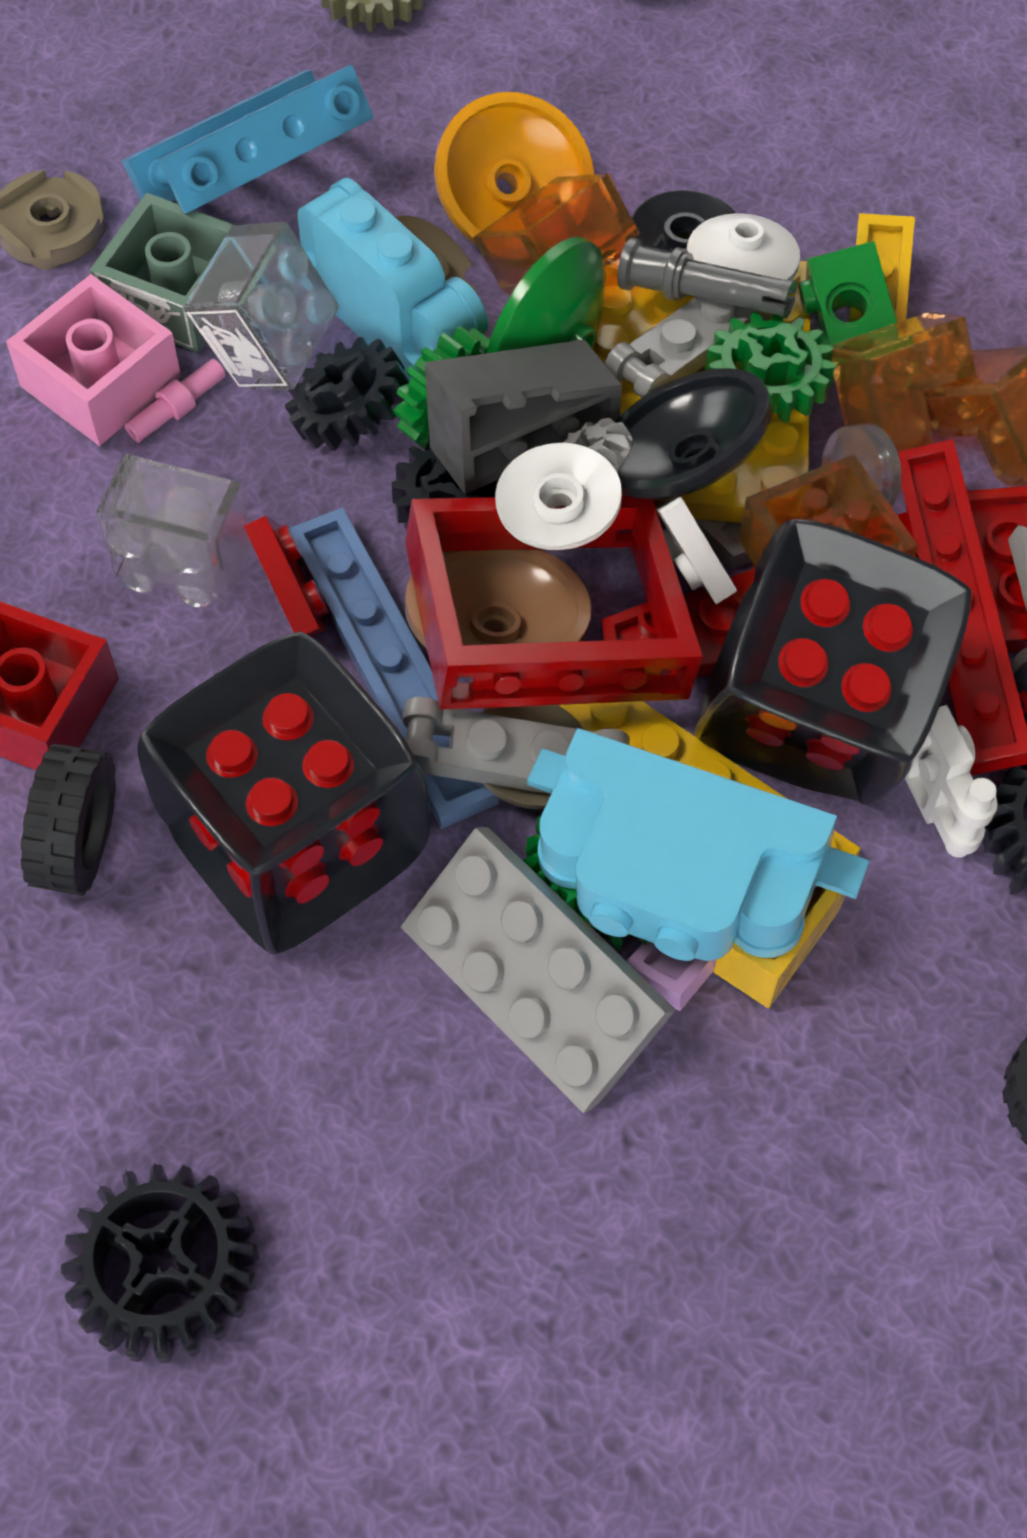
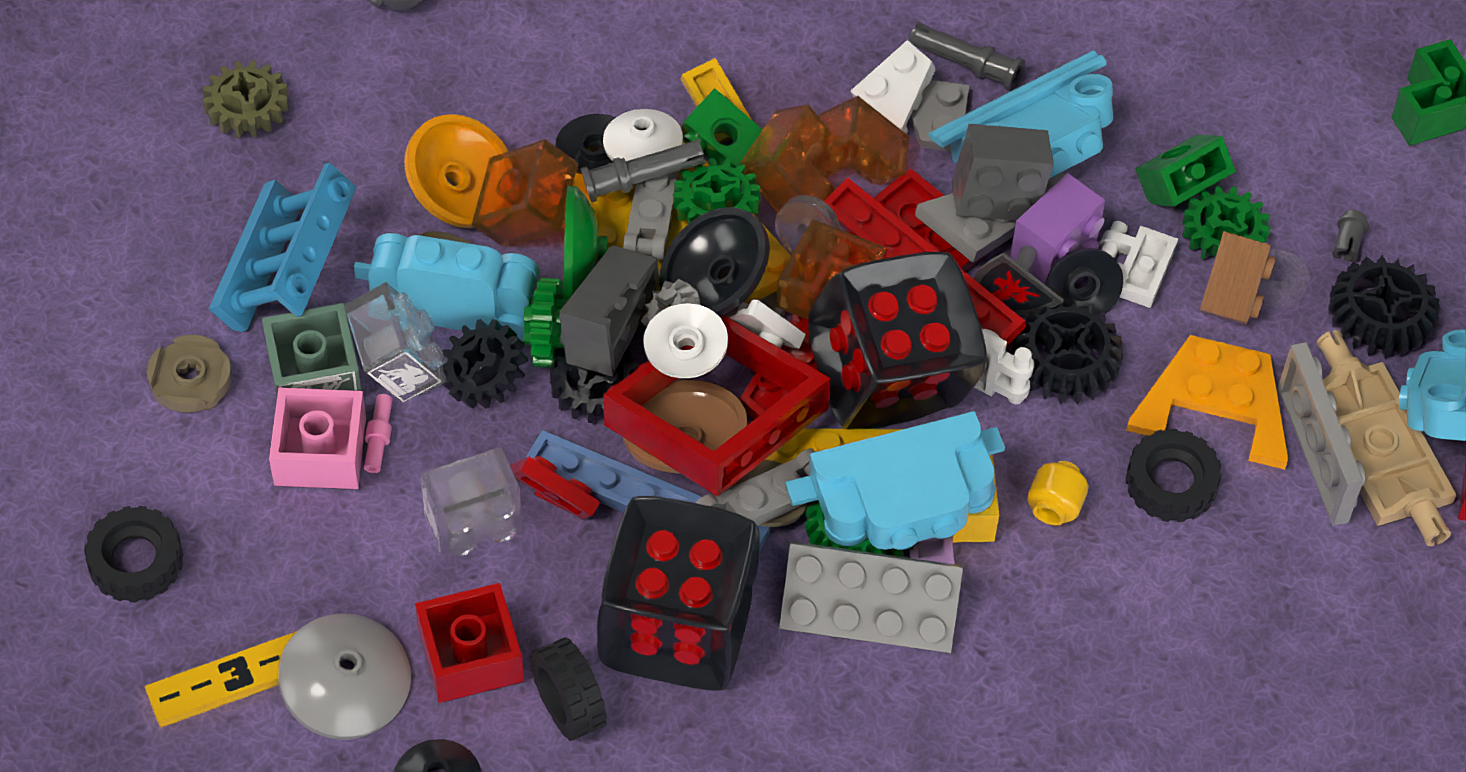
camera: 40 degrees left, 5 degrees down
(899, 1004) = (1057, 493): none -> yellow head

